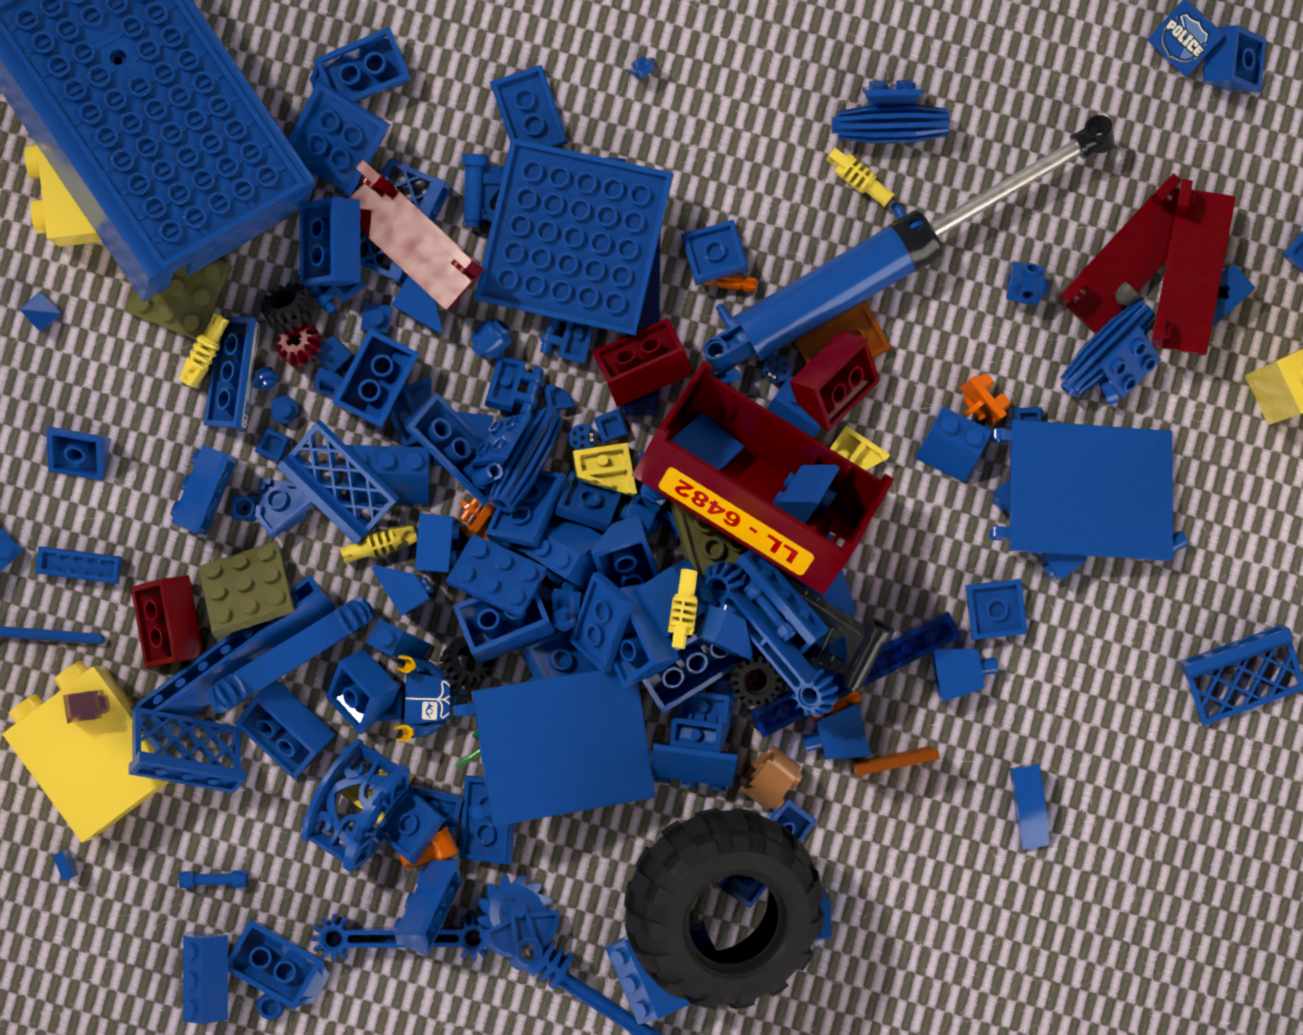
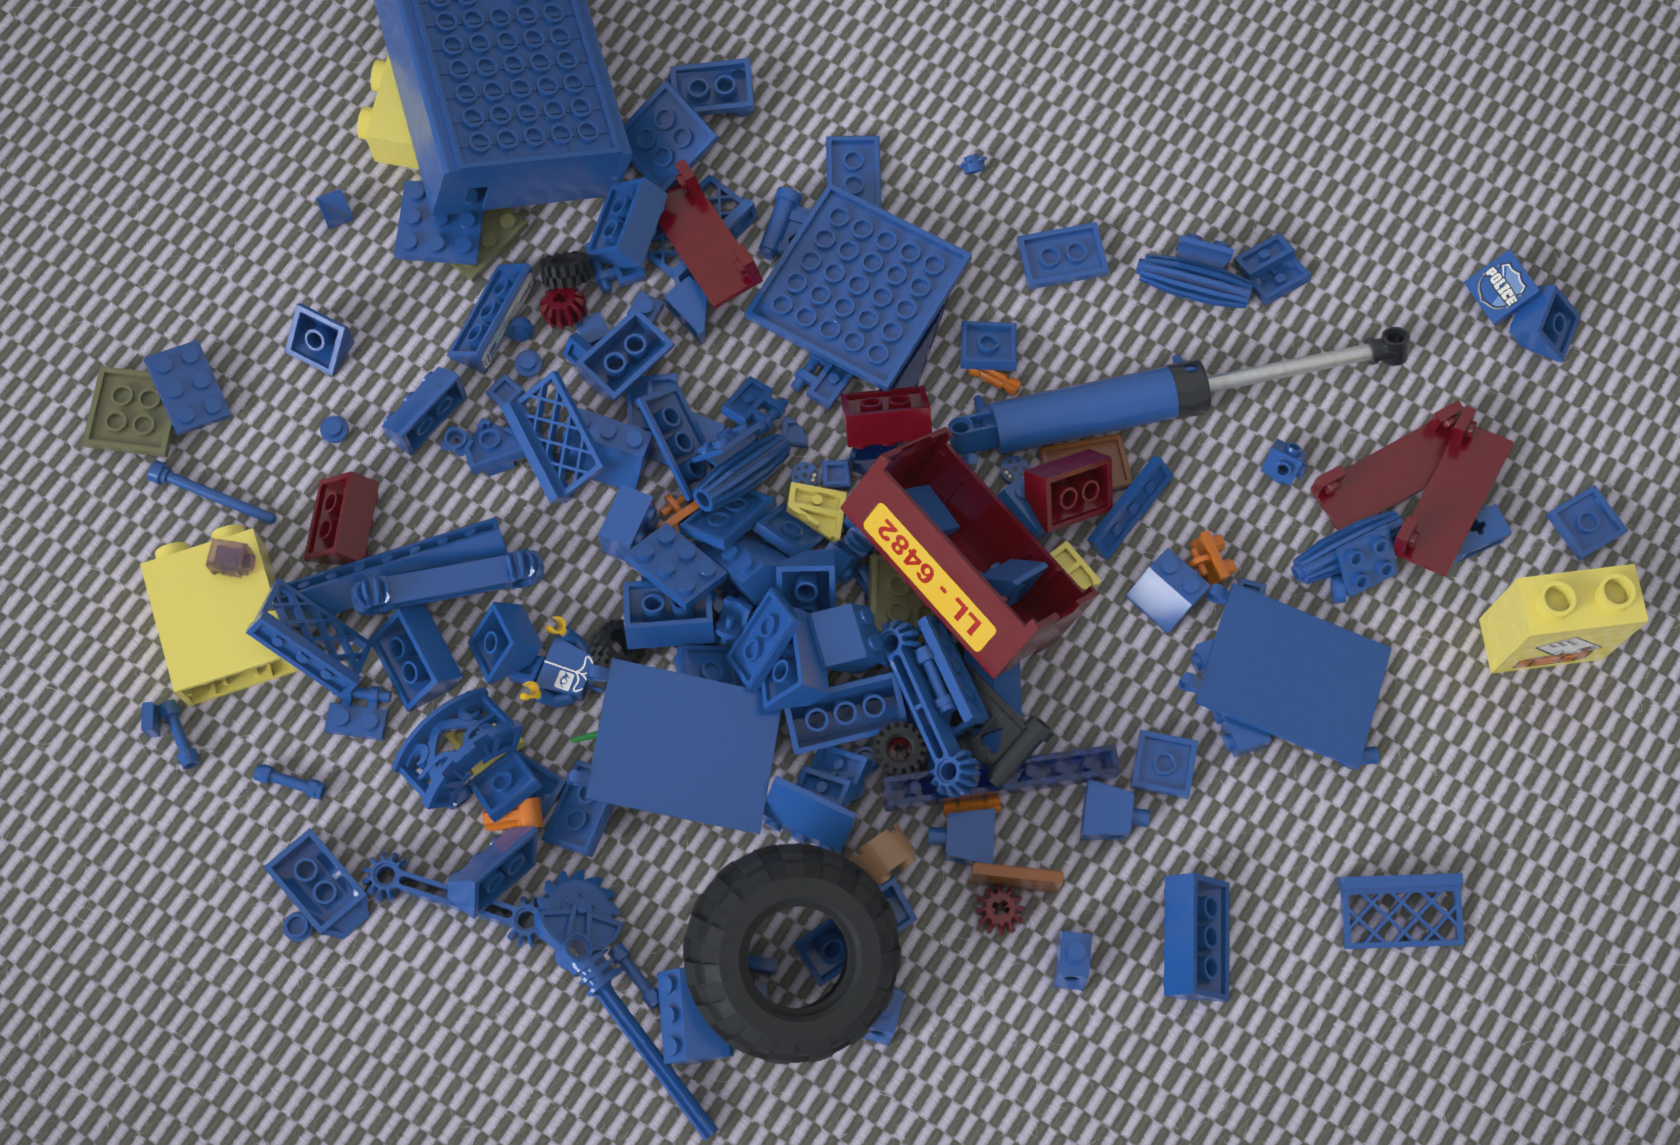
camera: 20 degrees right, 15 degrees down
(78, 565) = (278, 443): blue plate -> none
(111, 886) = (169, 712): none -> blue bar
(125, 533) = (334, 429): none -> blue plate
(159, 316) = (440, 237): none -> blue plate
(204, 350) = (473, 286): light yellow hinge -> none
(205, 977) = (242, 869): blue slope -> none
(246, 589) = (429, 510): olive plate -> none
(253, 803) = (356, 720): none -> blue plate
(381, 543) = (573, 512): light yellow hinge -> none
(397, 641) = (551, 601): blue slope -> none
(404, 589) = (584, 559): blue slope -> none
(484, 477) = (696, 472): blue pin -> none
(491, 338) = (748, 358): blue head -> none
(566, 939) = (621, 956): none -> blue bar
(683, 609) = (849, 644): light yellow hinge -> none
(699, 907) = (762, 965): none -> blue tile
(725, 630) = (884, 684): blue slope -> none
(757, 135) = (1062, 255): none -> blue plate
(825, 501) = (1023, 601): blue tile -> none
(859, 176) = (1149, 320): light yellow hinge -> none
(893, 799) = (995, 900): none -> dark red gear
(895, 372) = (1130, 507): none -> blue plate
(960, 84) = (1272, 269): none -> blue slope
(965, 813) = (1072, 960): none -> blue torso
(1030, 806) = (1142, 972): blue slope -> none
(1069, 760) = (1196, 938): none -> blue slope
(1126, 295) = (1381, 502): dark grey hinge -> none

